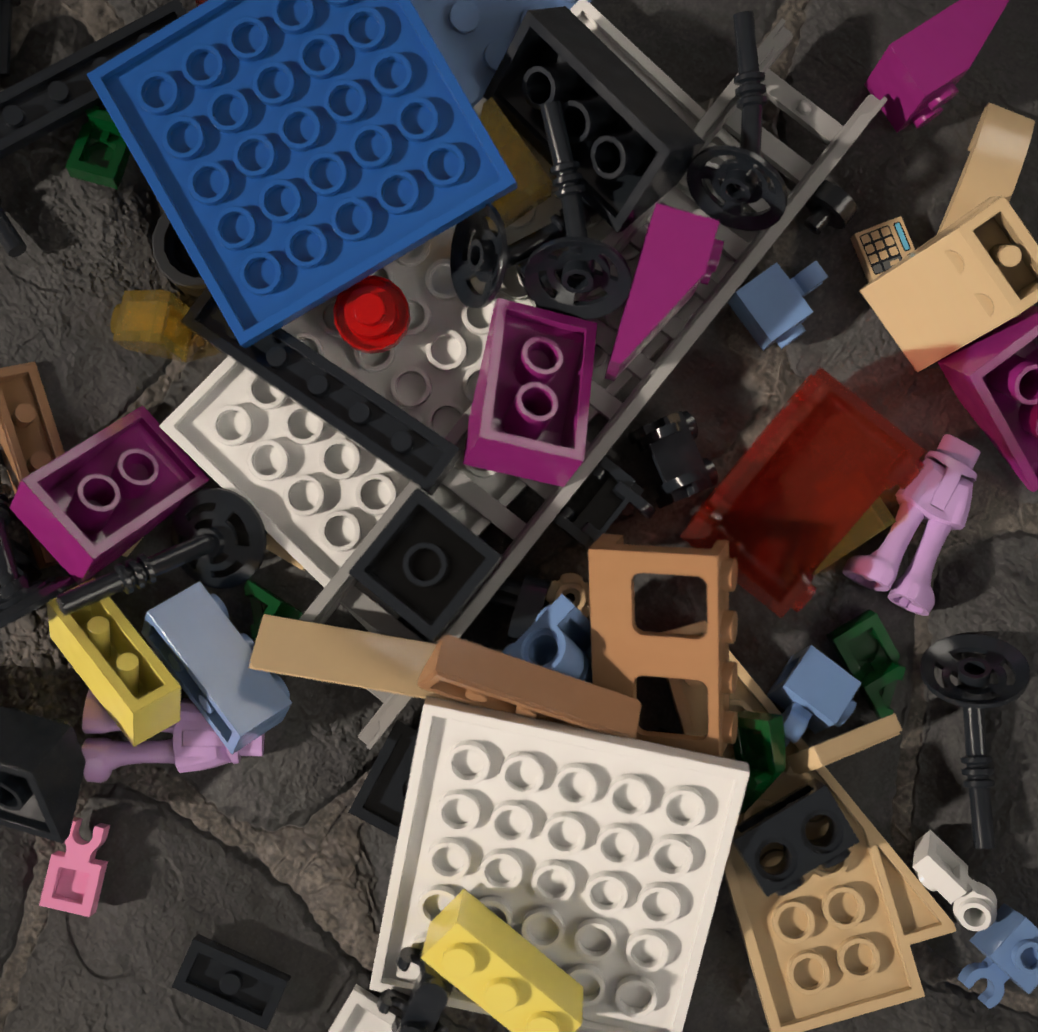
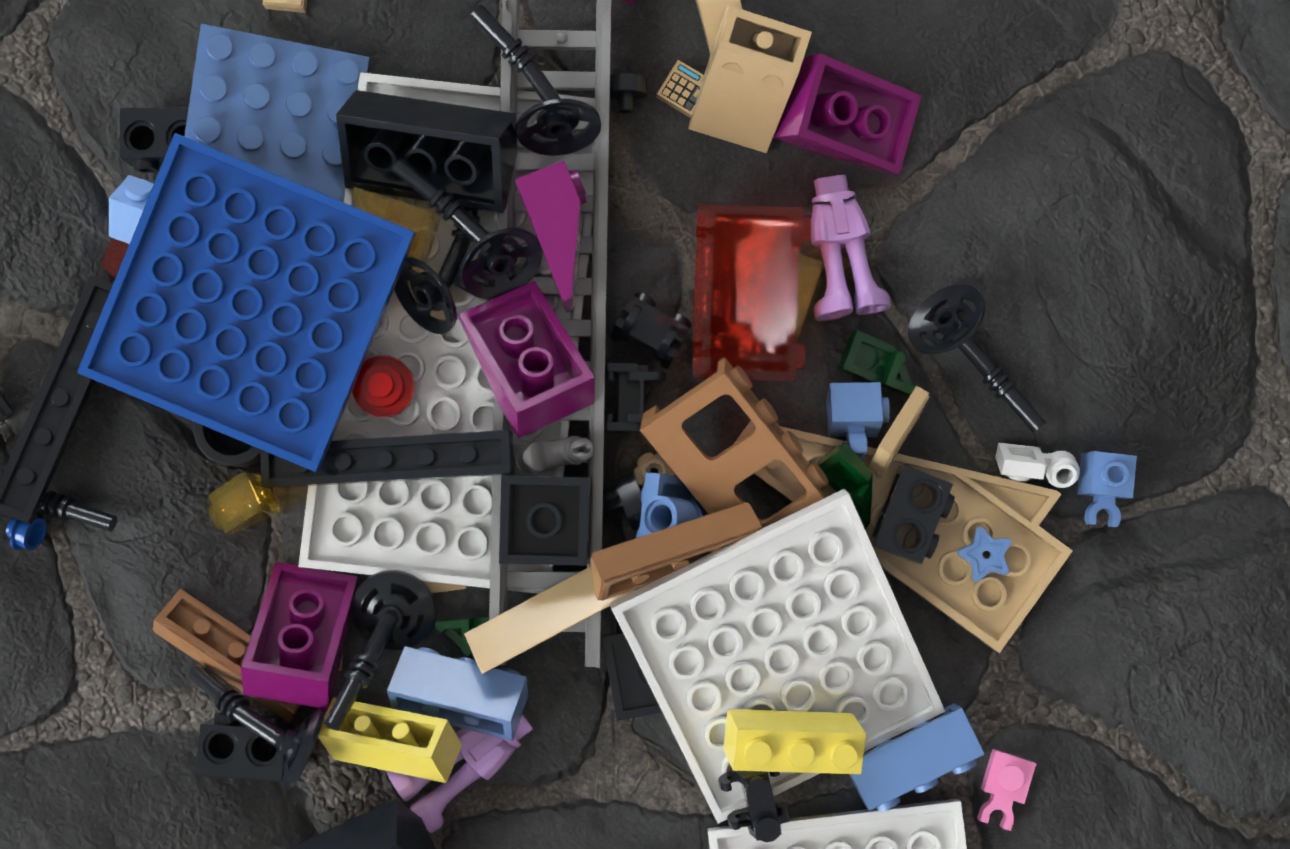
camera: 45 degrees left, 0 degrees up
(99, 151) = (115, 415): dark green slope -> none
(480, 502) = (544, 455): none -> light grey piece
(774, 304) = (639, 180): medium blue brick -> none
(836, 919) = (984, 542): none -> medium blue plate

